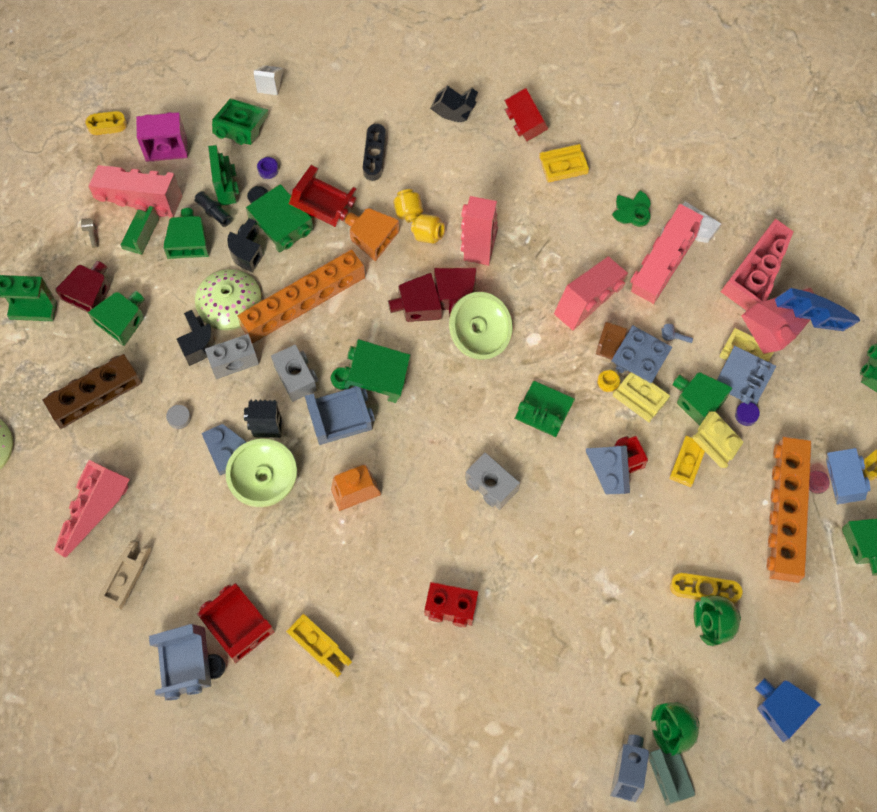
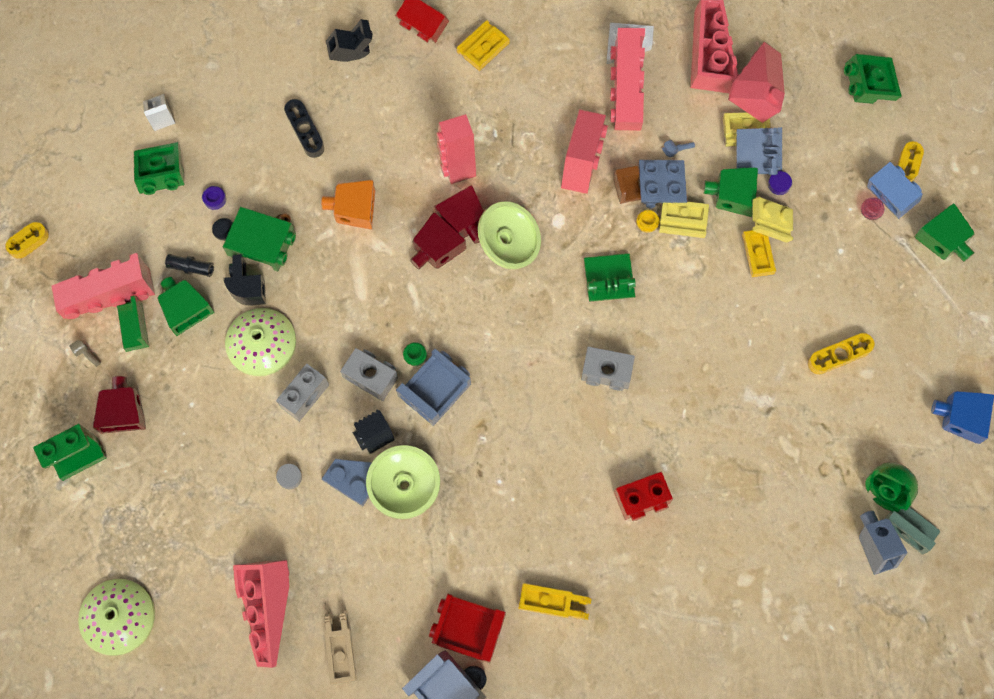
camera: 30 degrees left, 5 degrees up
(87, 402) = (193, 515): reddish brown brick -> none
(119, 315) = (169, 416): green torso -> none
(161, 136) = (95, 223): dark pink brick -> none
(195, 342) = (262, 397): black brick -> none
(222, 176) = (179, 228): green plate -> none
(301, 296) = (329, 300): orange brick -> none
(321, 198) = (289, 199): red panel -> none
(354, 487) = (493, 445): orange torso -> none
(376, 369) = (443, 328): green panel -> none
(408, 205) = (370, 161): yellow head -> none
(428, 228) = (402, 173): yellow head -> none
(611, 468) = (700, 296): sand blue wing -> none
(629, 210) = (567, 55): green plate -> none
(639, 459) = (714, 271): red brick -> none
(717, 619) = (869, 375): green cylinder -> none
(799, 453) = (868, 232): orange brick -> none
(818, 309) = (786, 58): blue slope -> none

